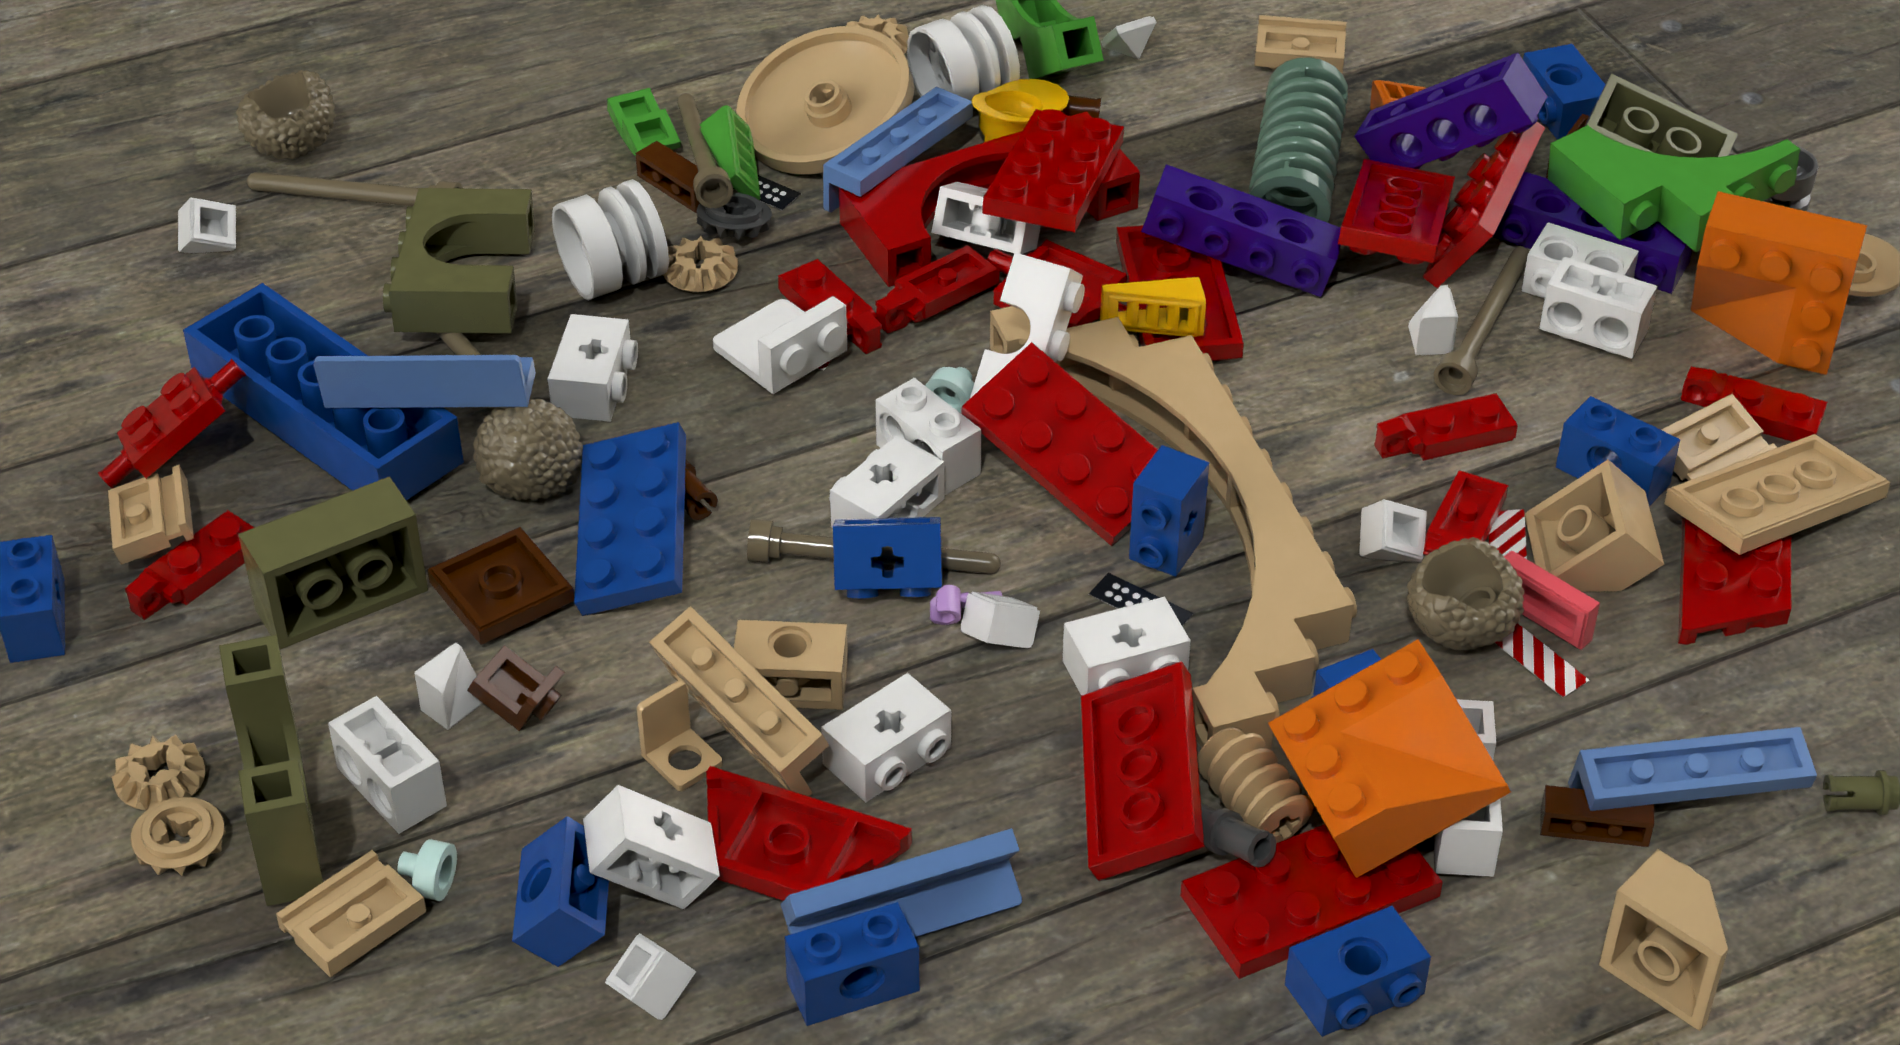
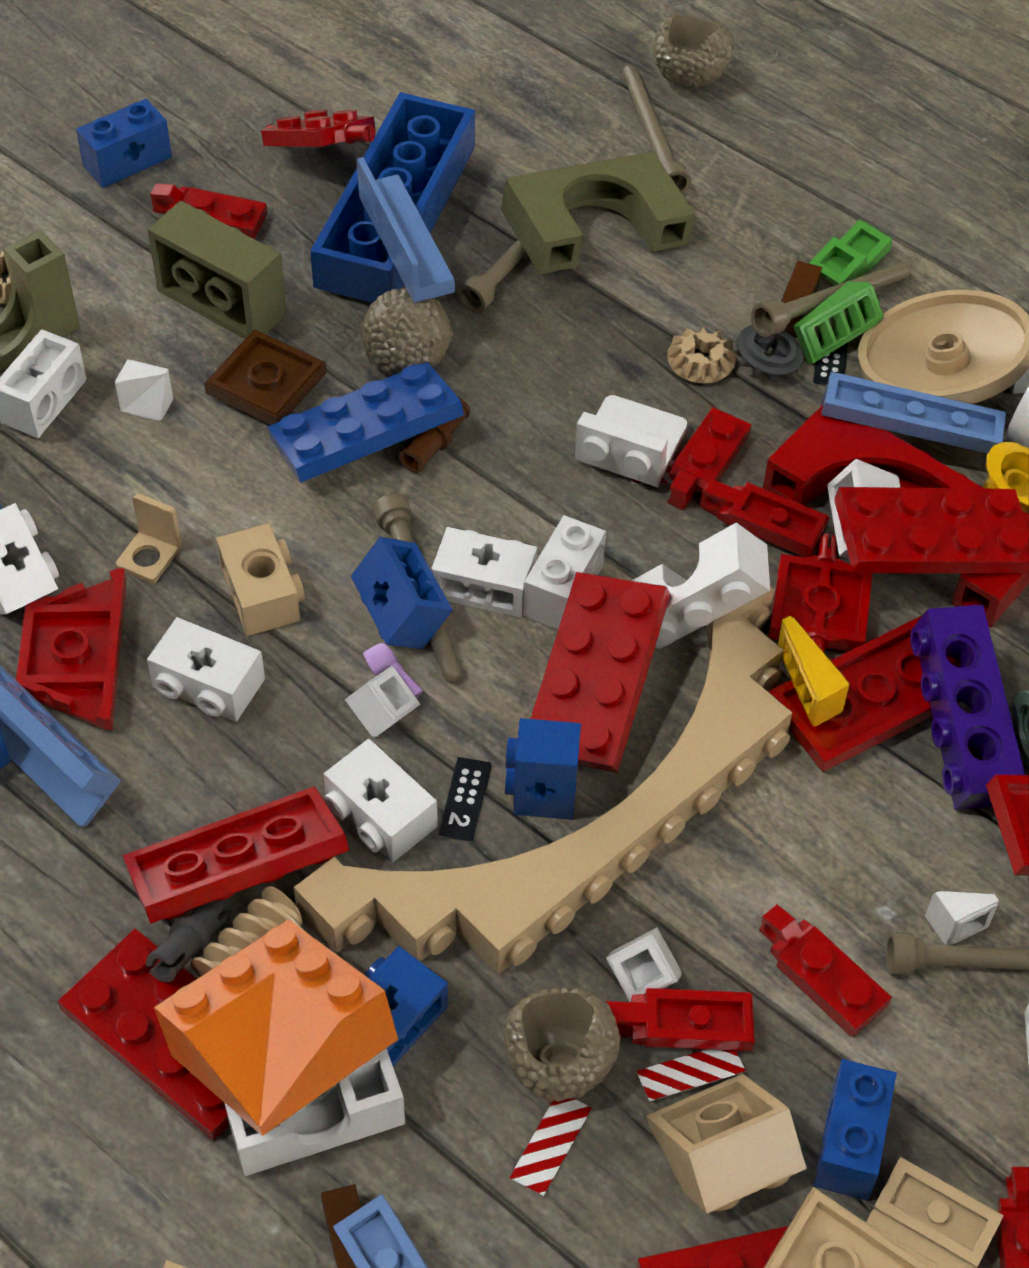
camera: 65 degrees right, 10 degrees up
(149, 515) = (234, 164): tan plate -> none
(206, 226) = (556, 67): white slope -> none
(516, 688) = (158, 426): reddish brown bracket -> none
(592, 367) = (527, 334): white brick -> none
(610, 239) = (663, 281): white wheel -> none
(740, 699) = (181, 558): tan fence -> none
(952, 385) = (635, 563): light aqua tile -> none
(1357, 971) = (65, 1064): blue brick -> none
(1555, 603) = (610, 1120): coral tile -> none

